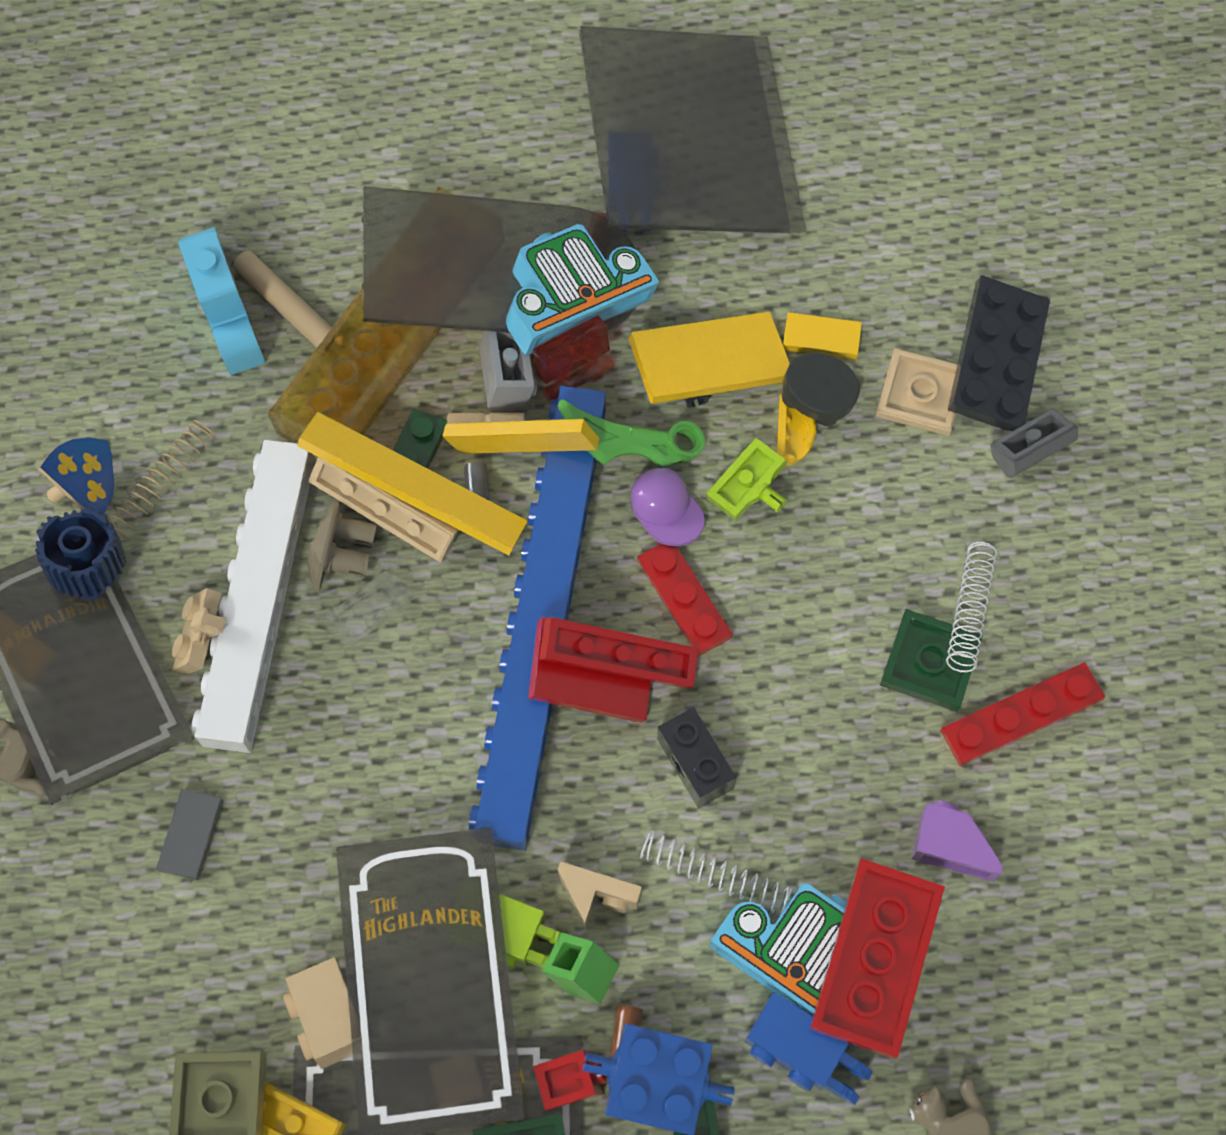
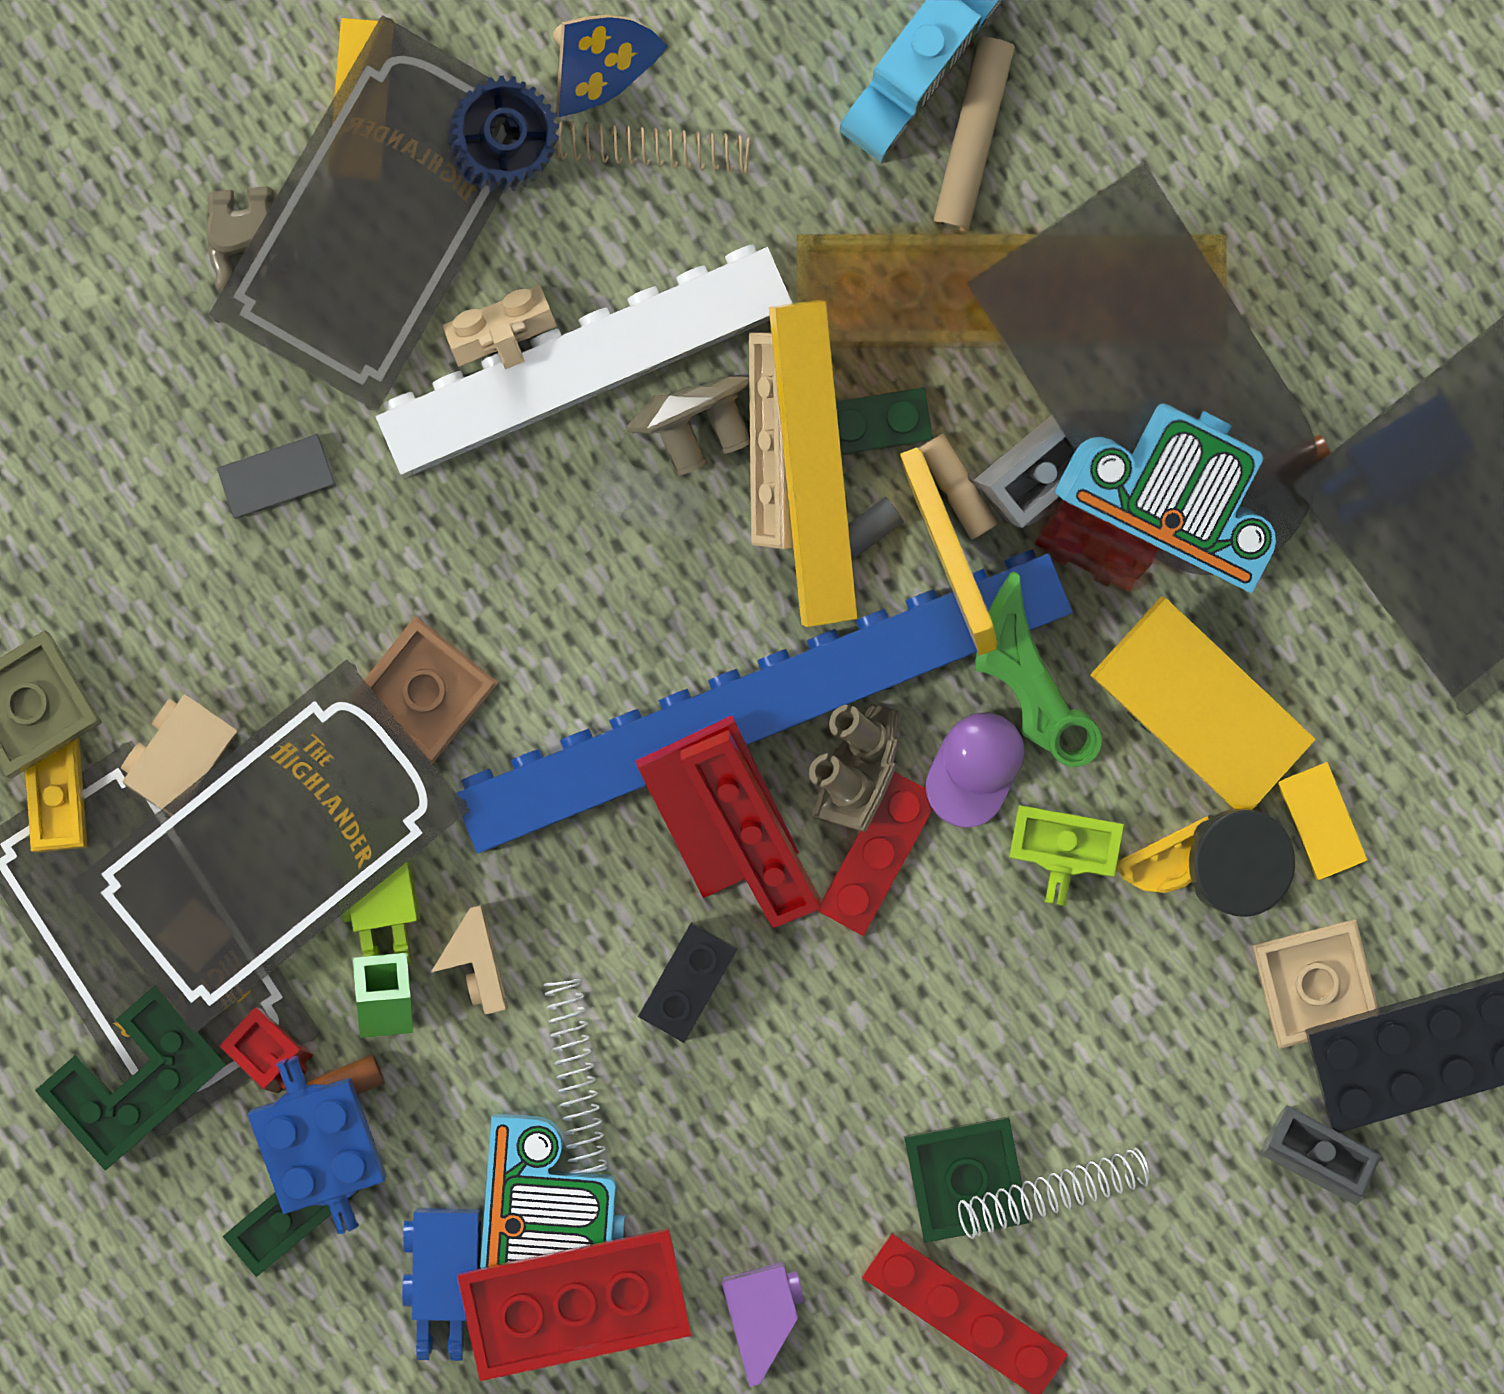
camera: 65 degrees right, 20 degrees up
(393, 810) = (429, 687): none -> medium nougat tile
(621, 574) = (858, 771): none -> dark tan connector

